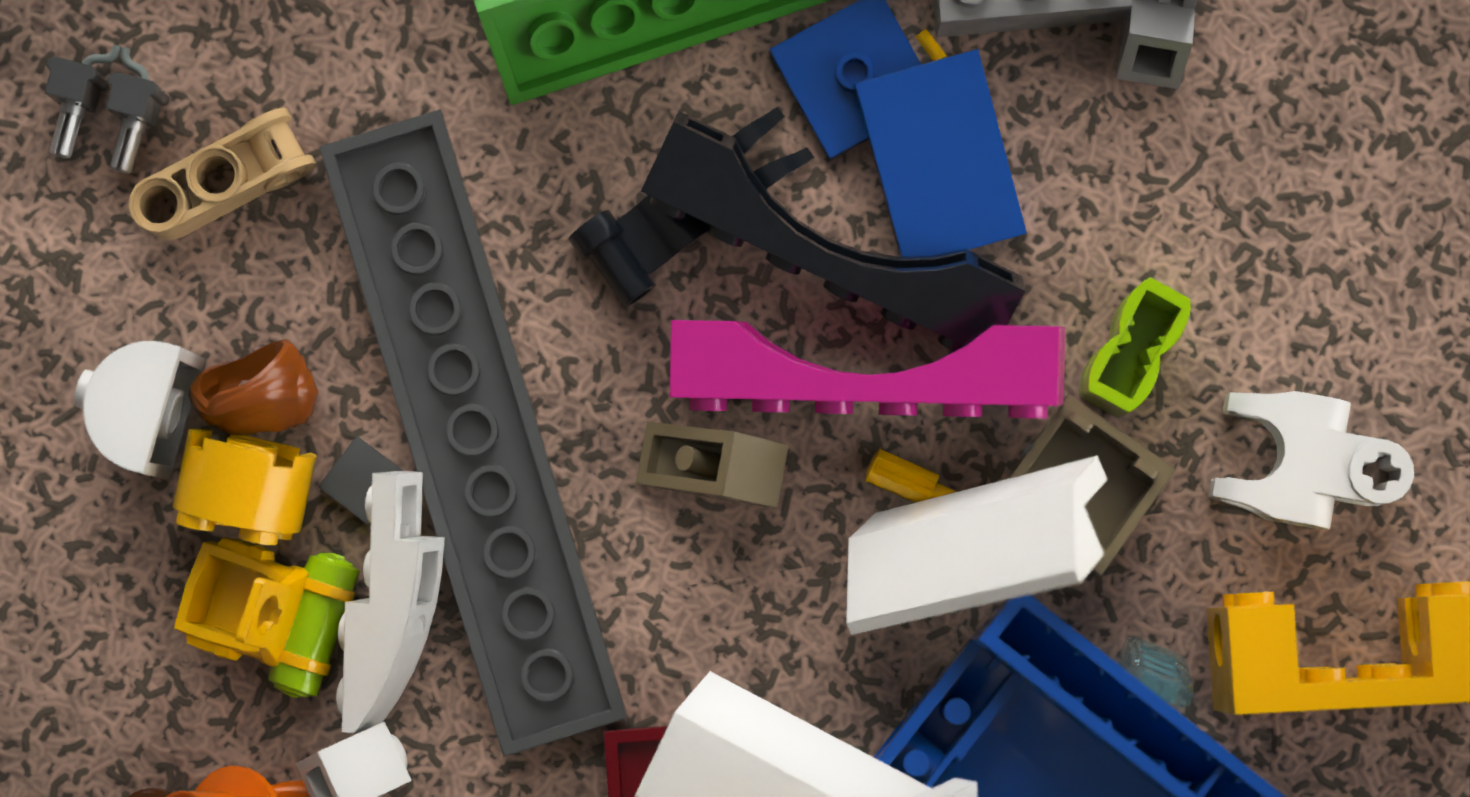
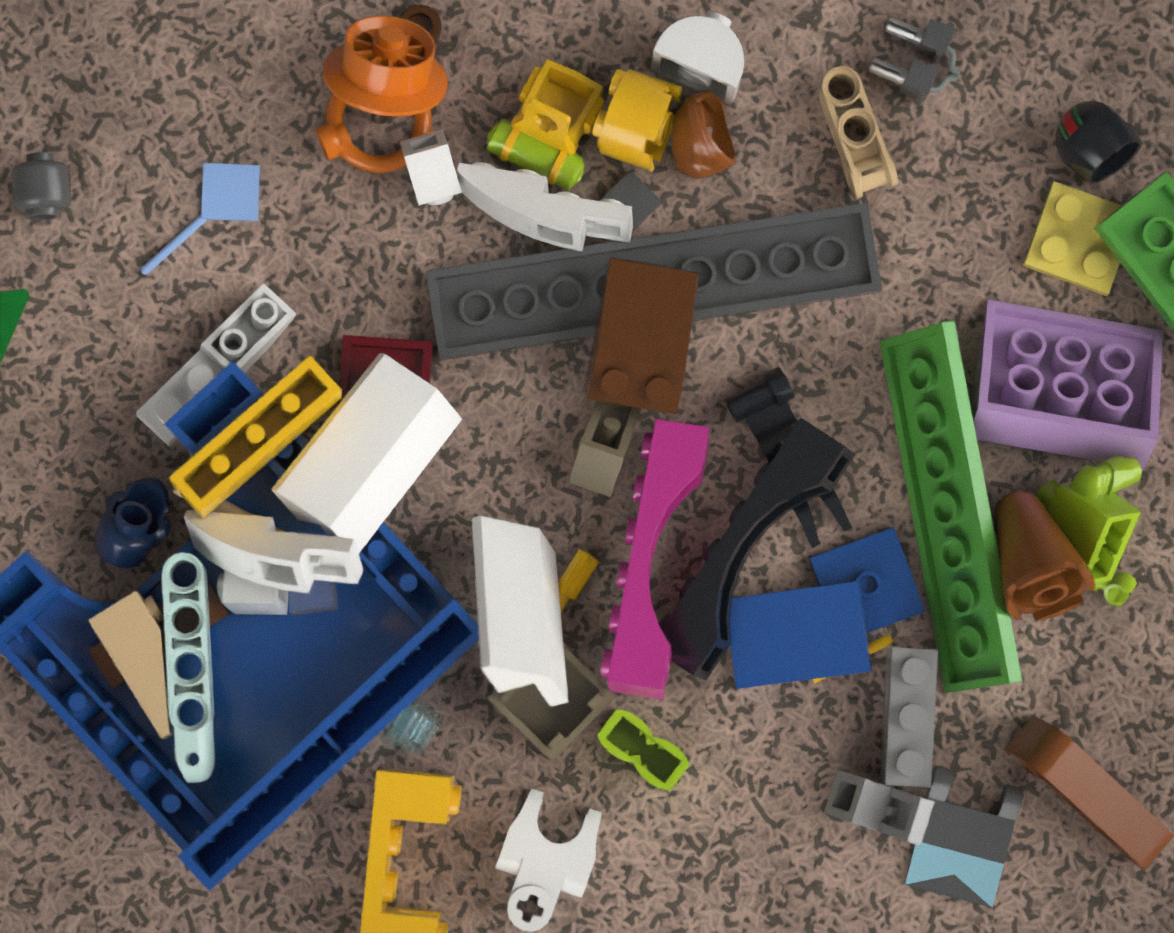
camera: 90 degrees right, 0 degrees up
(555, 433) = (642, 335): none -> reddish brown slope

